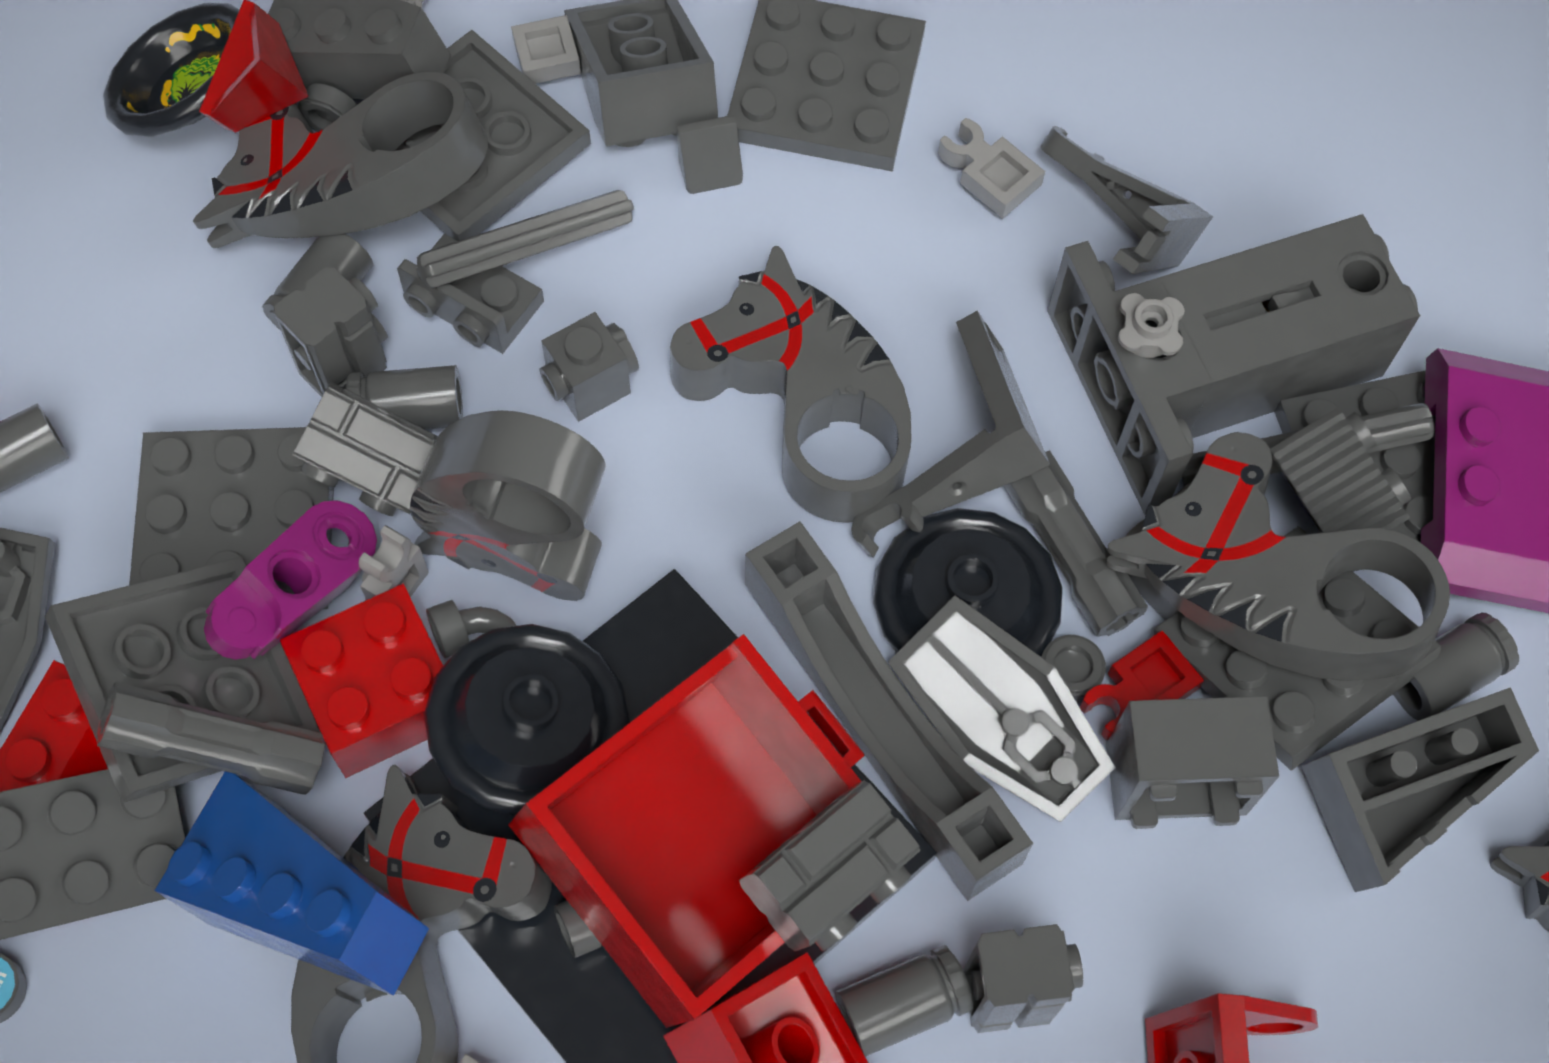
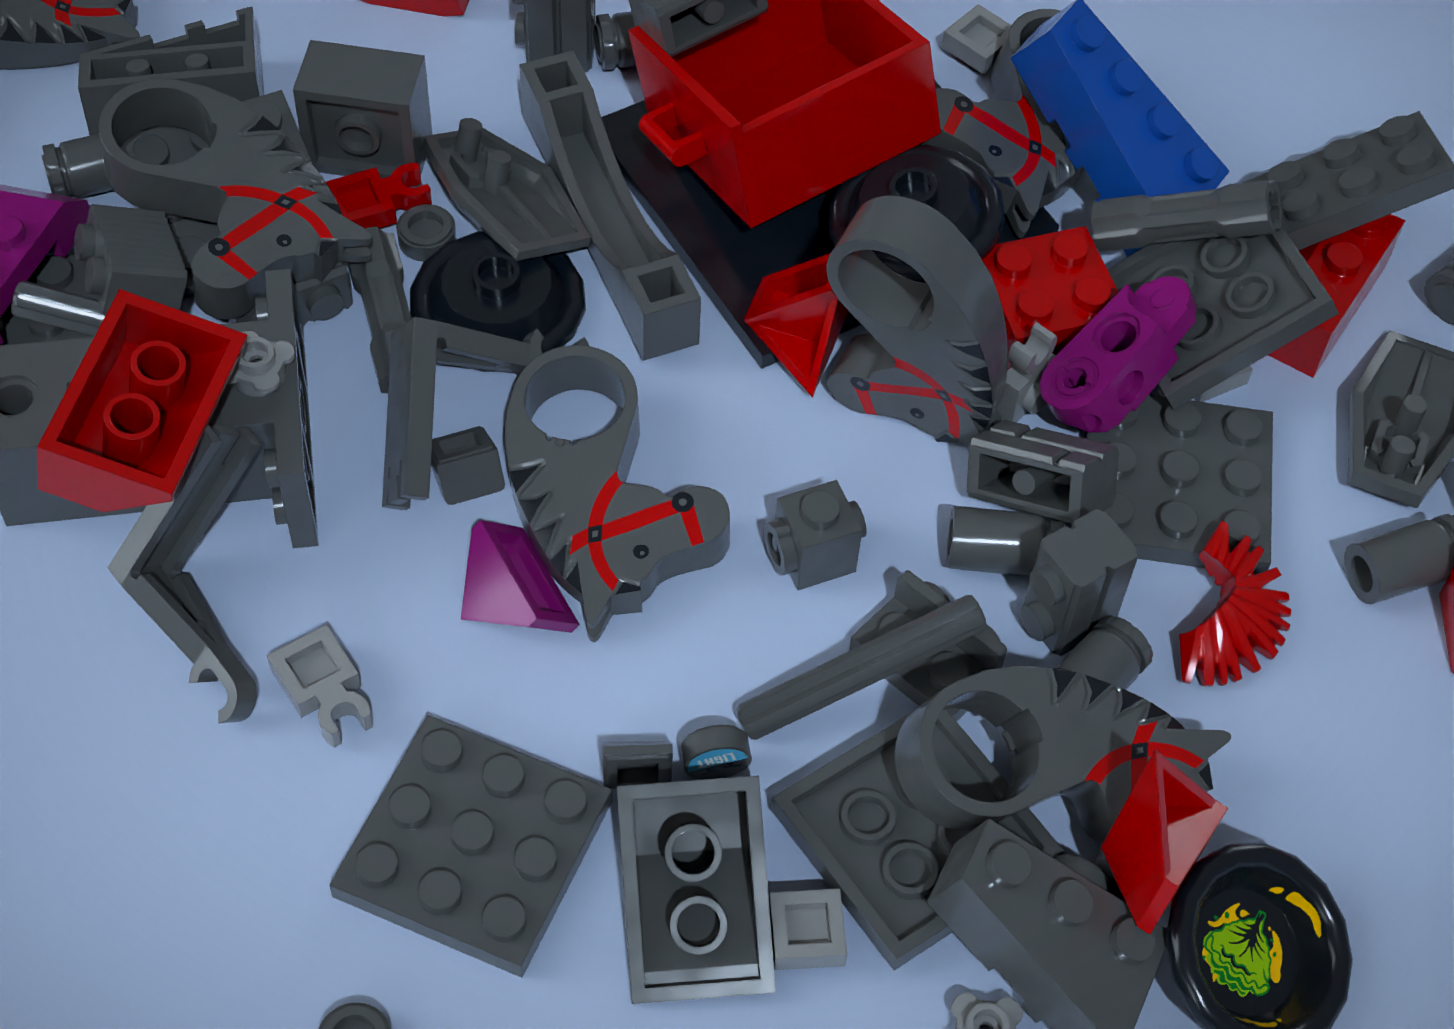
camera: 170 degrees left, 10 degrees down
(175, 379) = (1242, 620): none -> red hair
(637, 606) = (798, 319): none -> red slope
(643, 163) = (716, 752): none -> dark grey tile
(855, 280) = (511, 583): none -> magenta slope
(944, 408) = (466, 465): none -> dark grey slope
(1228, 224) = (136, 406): none -> red slope

